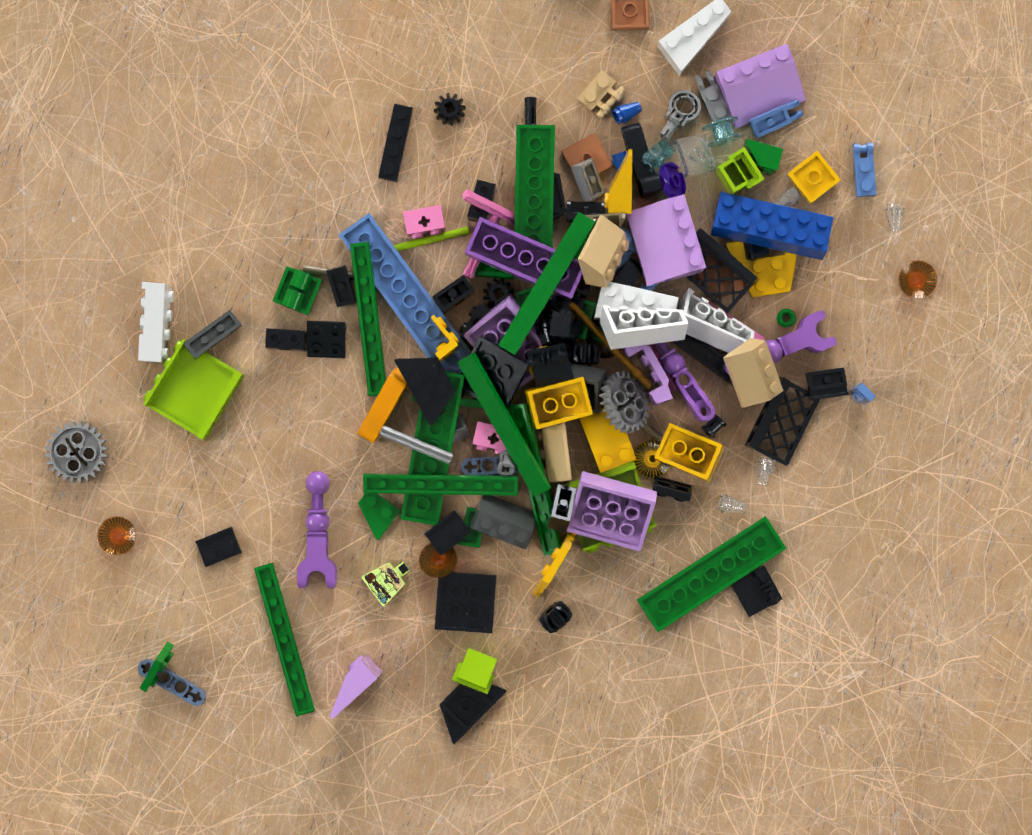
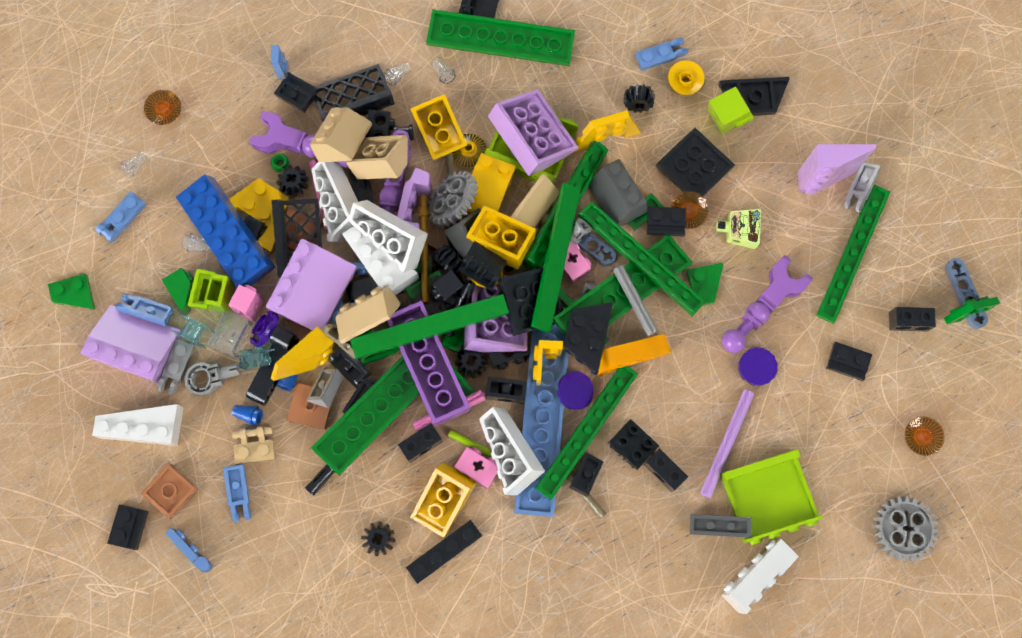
camera: 135 degrees left, 10 degrees down
(197, 621) = (912, 319): none -> black brick
(258, 402) = (727, 443): none -> lavender axle
(283, 481) = (757, 366): none -> dark purple tile
(297, 290) = (623, 501): green plate -> none
(321, 701) = (862, 185): none -> light grey hinge
(403, 340) = (575, 390): none -> dark purple tile
(410, 251) = (512, 454): none -> white wedge
(429, 177) = (443, 499): none -> yellow slope
(489, 206) = (418, 429): bright pink axle -> none
(538, 680) = (689, 71): none -> yellow dish
(561, 508) = (567, 162): black brick -> none
(574, 673) = (660, 54): none -> medium blue hinge
(582, 53) = (237, 490): none -> medium blue hinge
(667, 487) = (474, 114): black plate -> none
(703, 188) = (246, 302): none -> bright pink brick
(705, 382) = (380, 157): none -> tan slope
(729, 413) = (380, 130): none -> black brick
(764, 318) = (286, 184): none -> black gear
(813, 177) = (161, 243): yellow plate -> none
(842, 83) = (72, 292): none -> green wing

